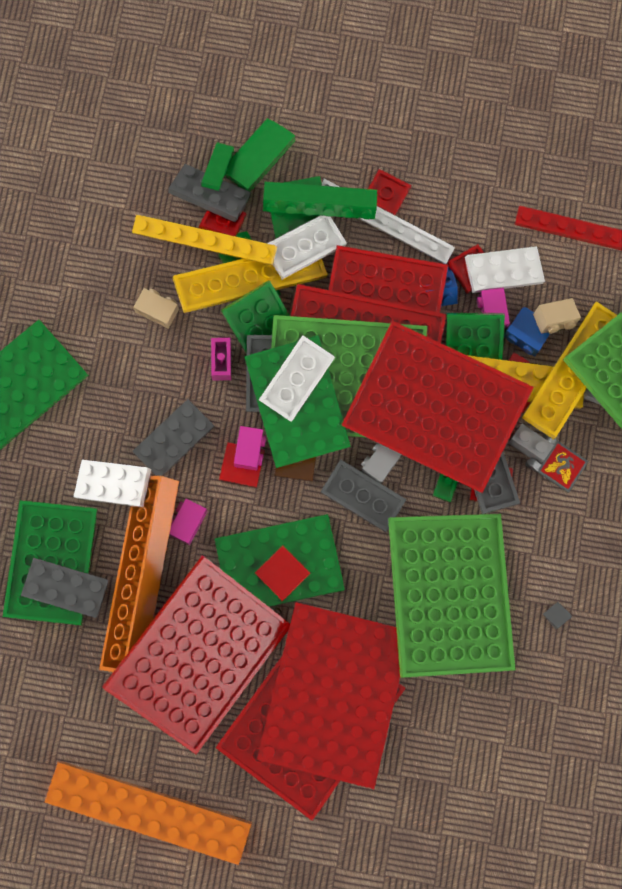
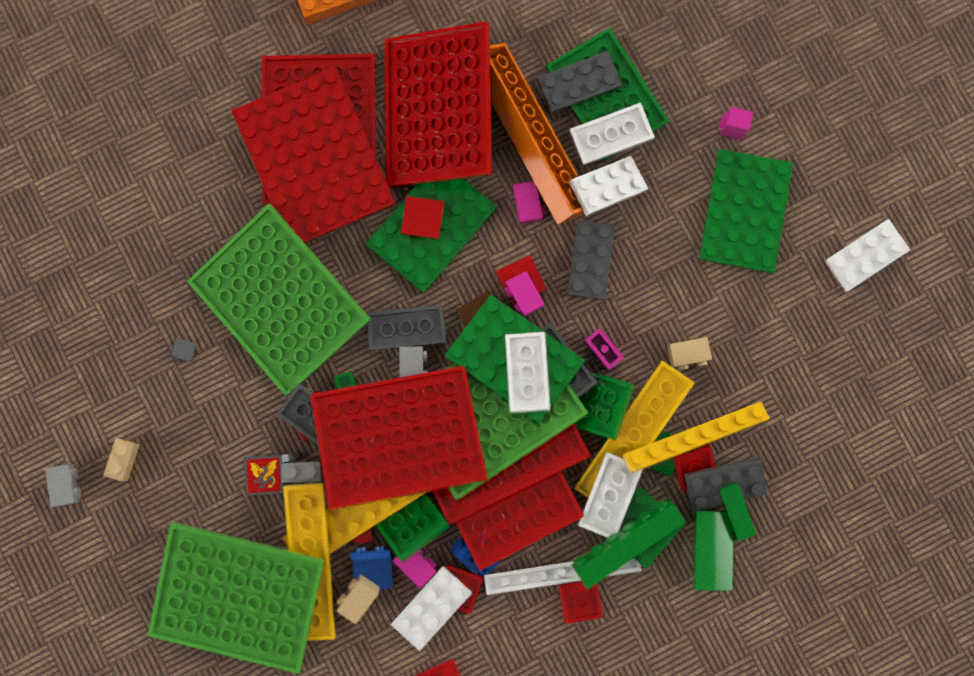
camera: 145 degrees right, 5 degrees up
(75, 523) = (611, 134): none -> white plate

